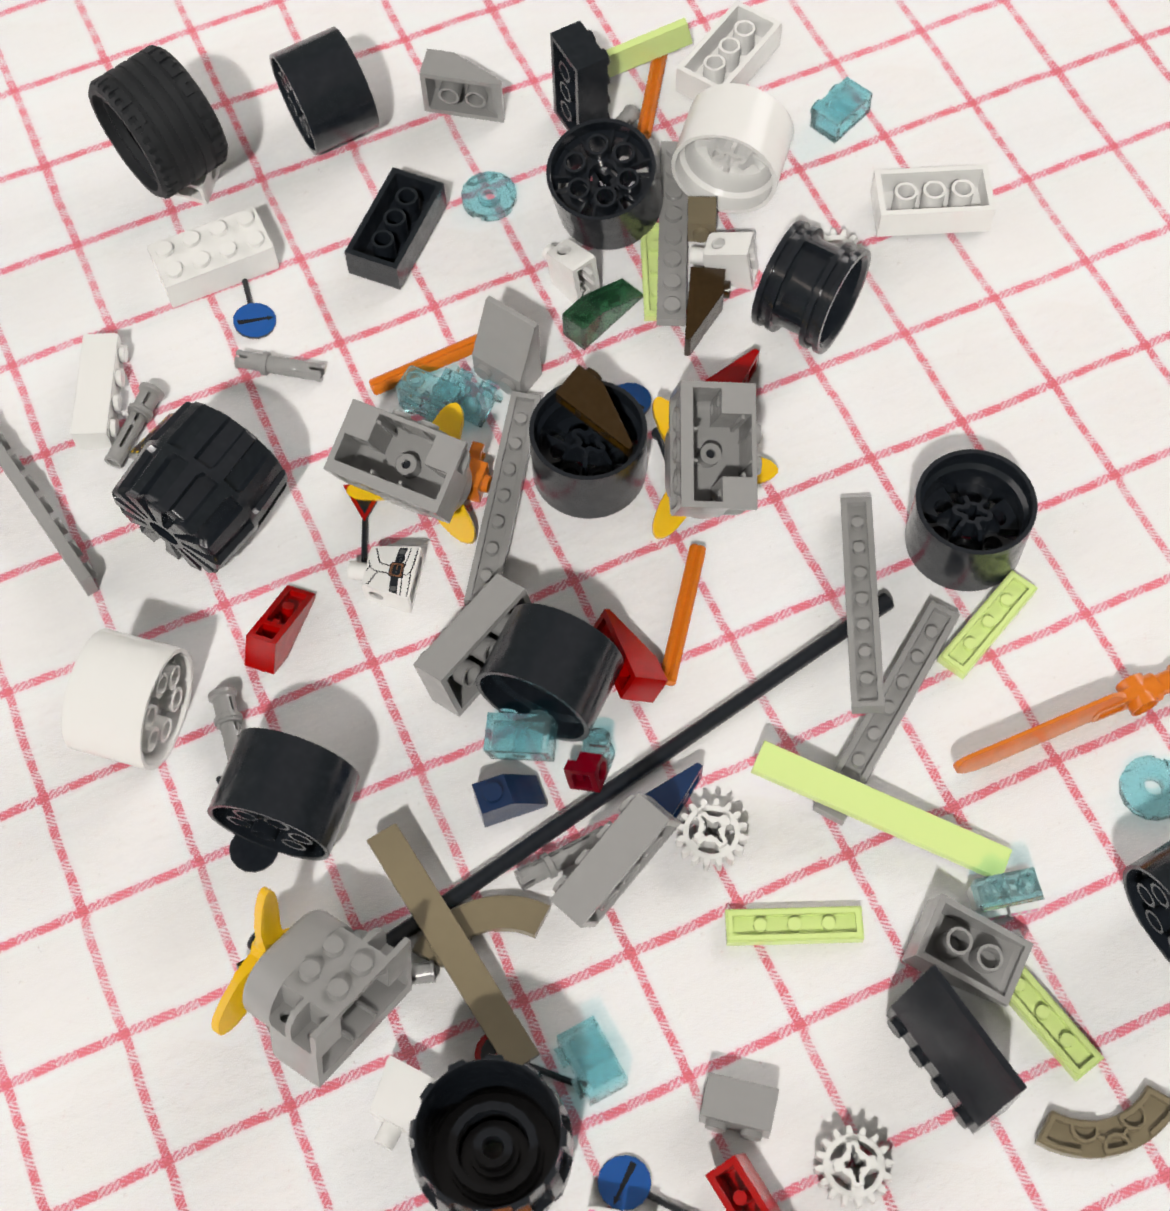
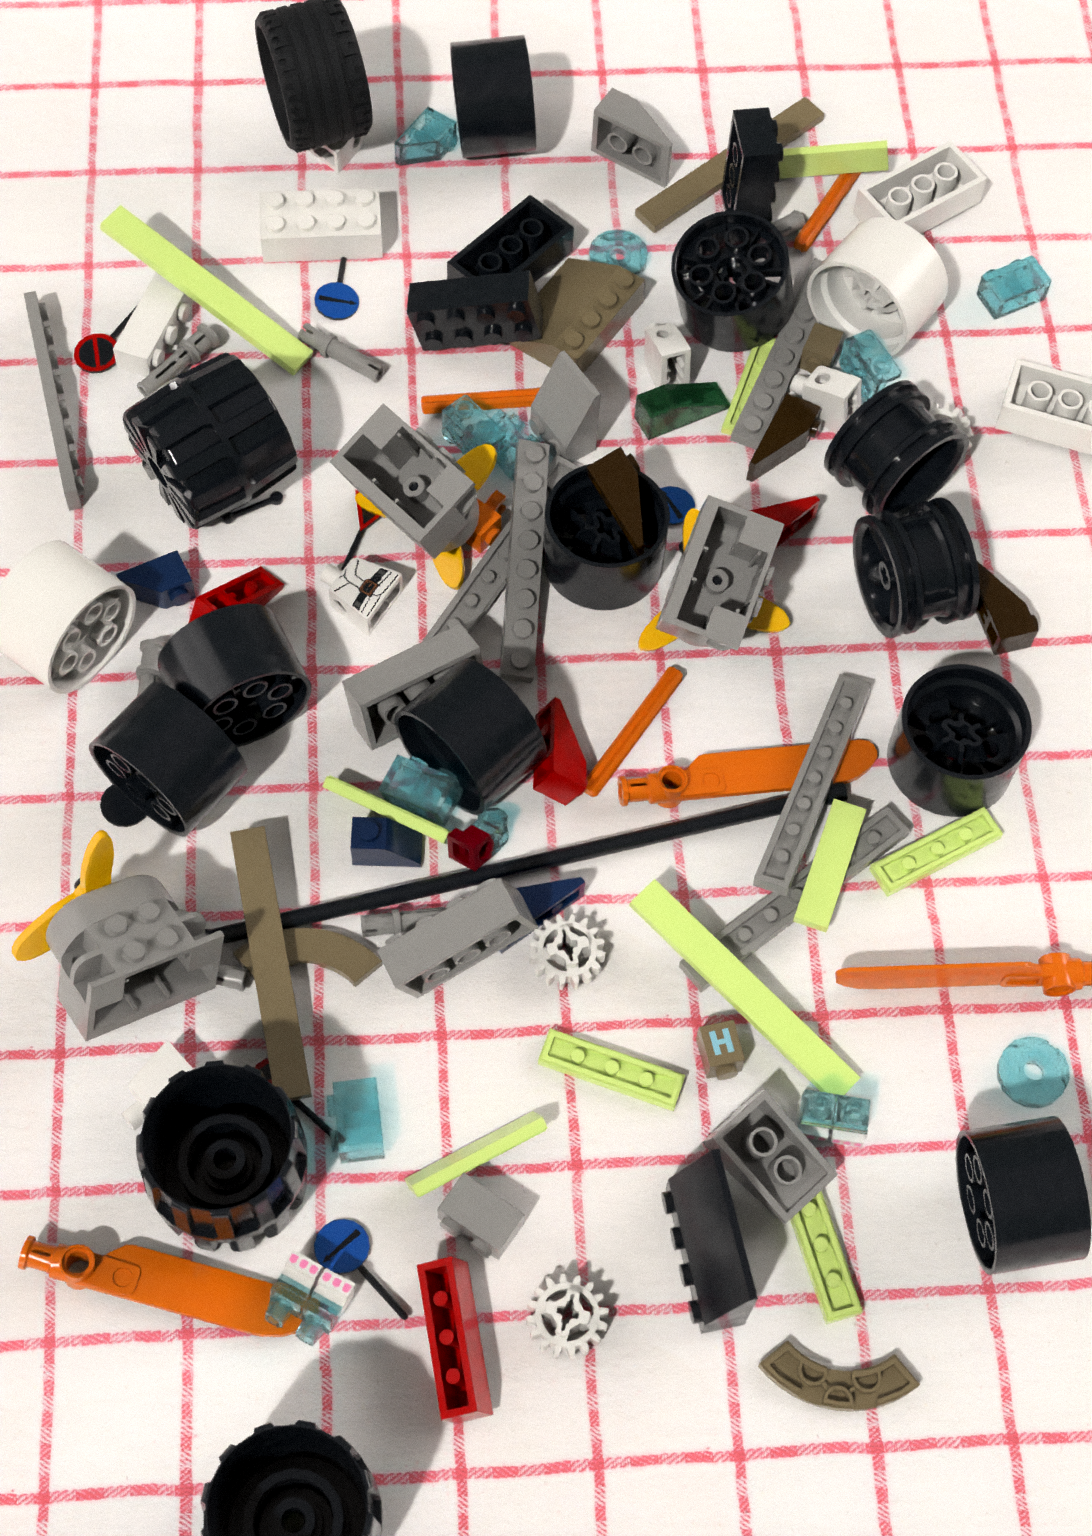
camera: 15 degrees right, 0 degrees up
(54, 441) = (96, 352): none -> piece
(134, 350) = (206, 290): none -> yellowish green tile
(203, 631) = (160, 582): none -> dark blue slope
(274, 518) = (275, 498): none -> black hinge
(276, 148) = (426, 139): none -> clear light blue slope
(314, 689) = (237, 671): none -> black wheel
(388, 287) = (475, 310): none -> black brick
(473, 258) = (583, 311): none -> dark tan slope
(498, 765) = (386, 808): none -> yellowish green tile
(525, 496) = (524, 561): none -> light grey plate
(539, 99) = (709, 176): none -> dark tan tile
(709, 1050) = (476, 1154): none -> yellowish green tile
(747, 213) = (869, 360): none -> clear light blue bracket
(790, 619) = (738, 774): none -> orange piece
(871, 381) = (916, 567): none -> black wheel
(883, 872) = (720, 1050): none -> dark tan brick
(906, 671) = (829, 865): none -> yellowish green tile
(951, 394) = (1003, 615): none -> dark brown slope

